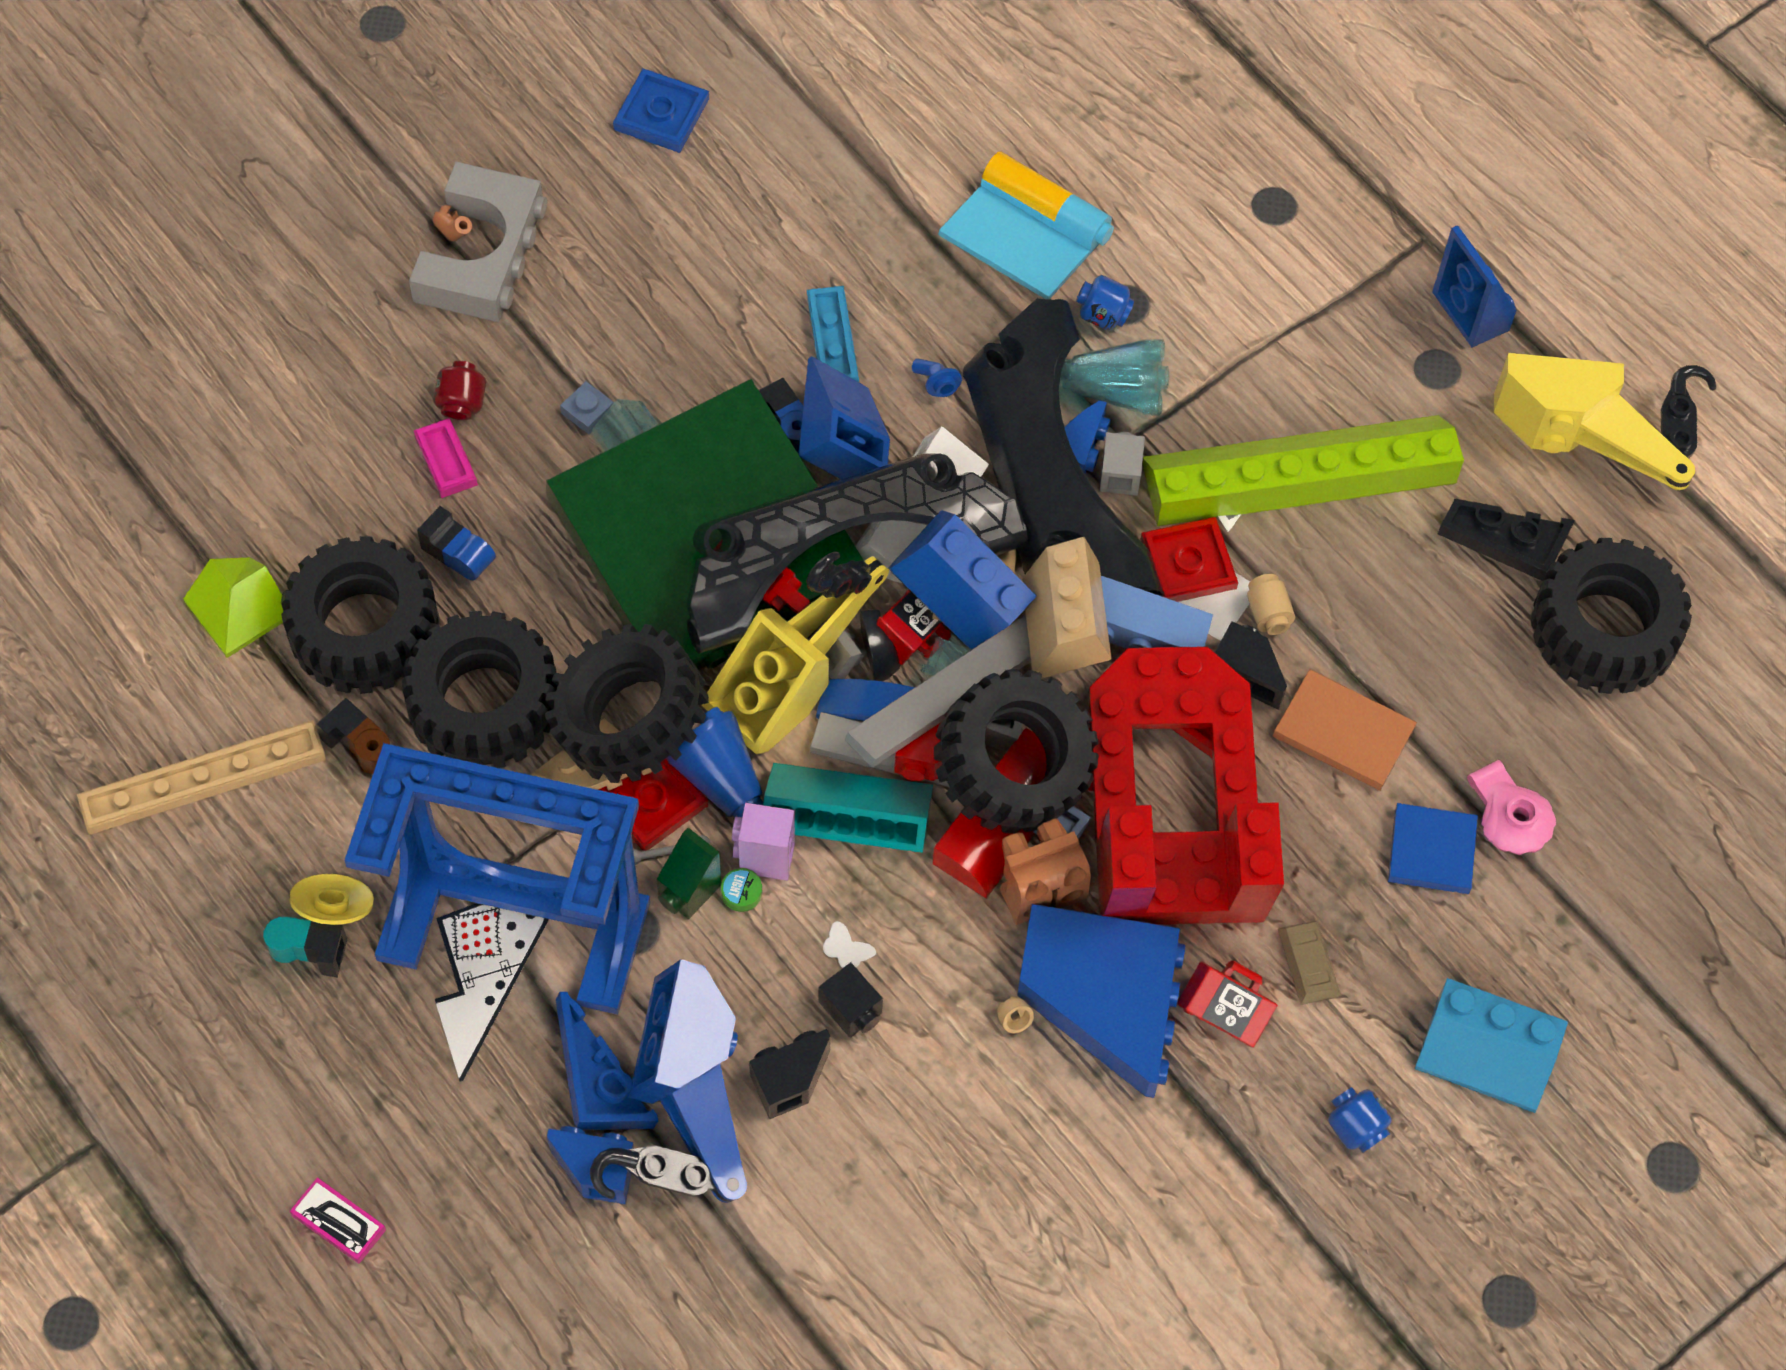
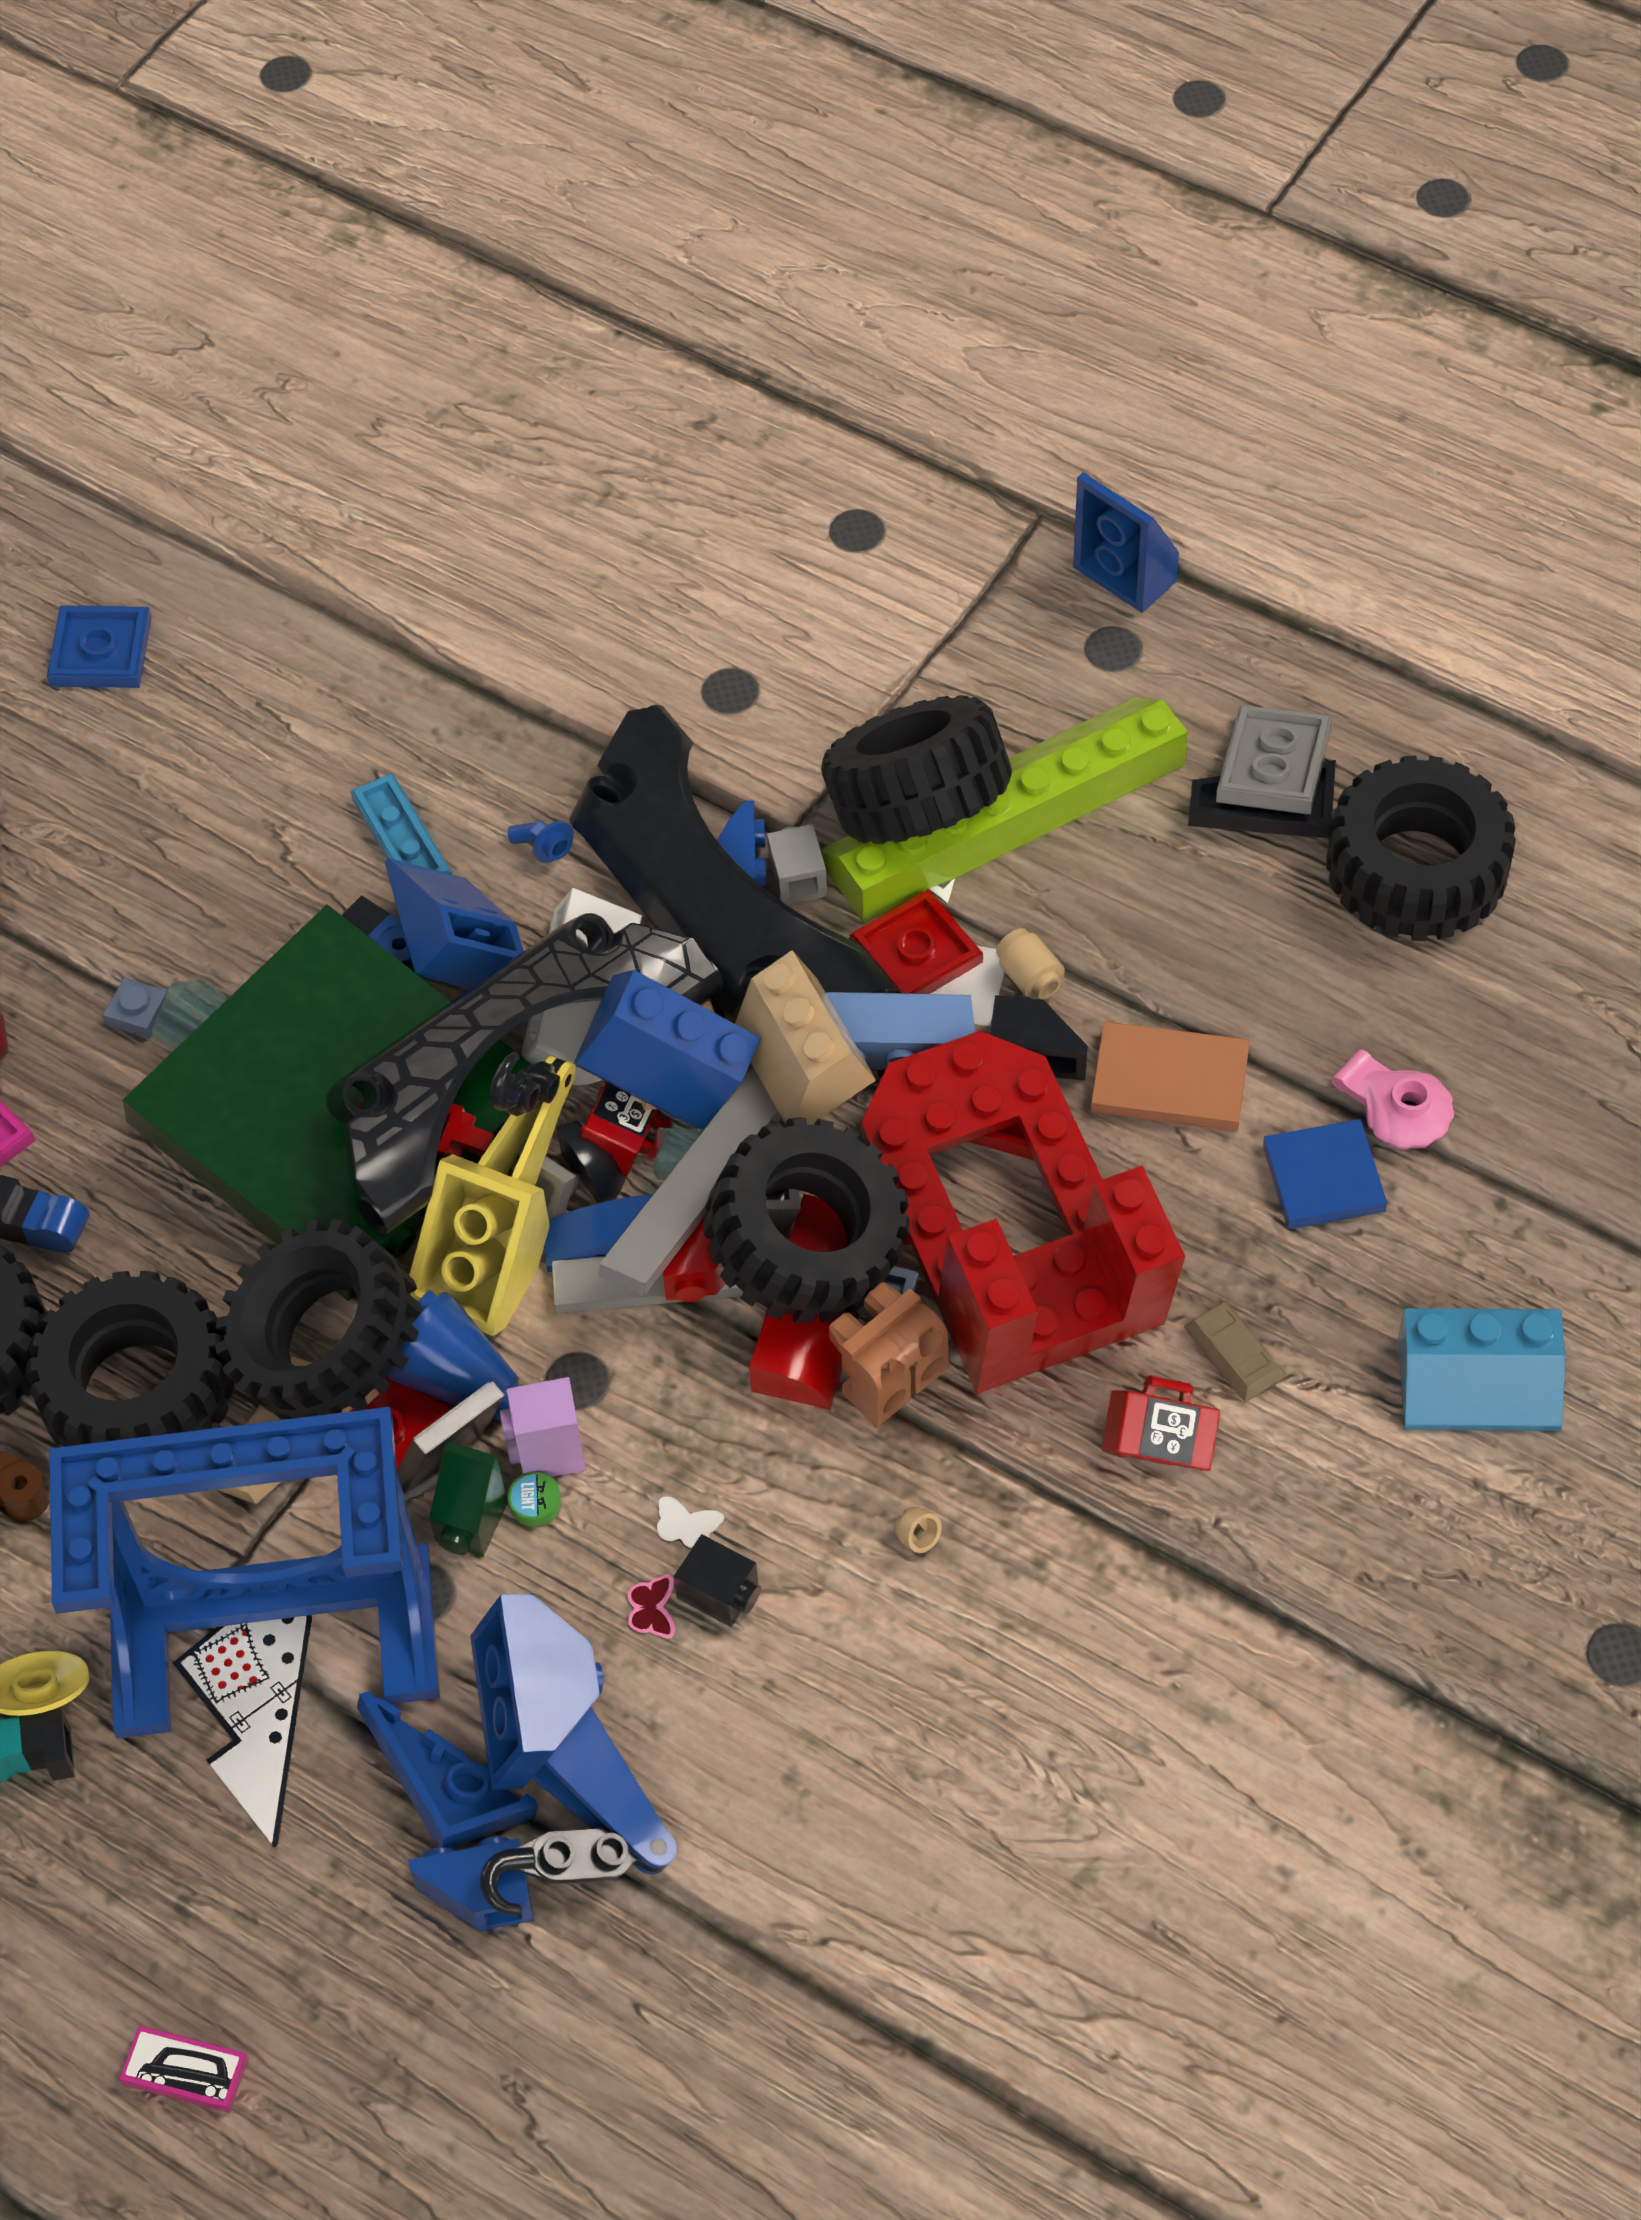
camera: 15 degrees left, 5 degrees down
(697, 818) = (459, 1425): none -> black tile
(789, 1074) = (676, 1693): black slope -> none
(796, 997) = (648, 1607): none -> dark red sticker
(852, 806) = (634, 1355): teal brick -> none
(1027, 226) = (582, 639): medium azure door -> none
(1105, 302) = (706, 694): blue head -> none
(1105, 987) = (1012, 1460): blue slope -> none
(1121, 375) = (757, 766): clear light blue cone -> none
(1238, 421) = (916, 769): none -> black tyre
(1359, 1119) = (1367, 1506): blue head -> none
(1525, 504) = (1274, 759): none -> light grey tile
(1578, 401) = (1285, 628): light yellow slope -> none

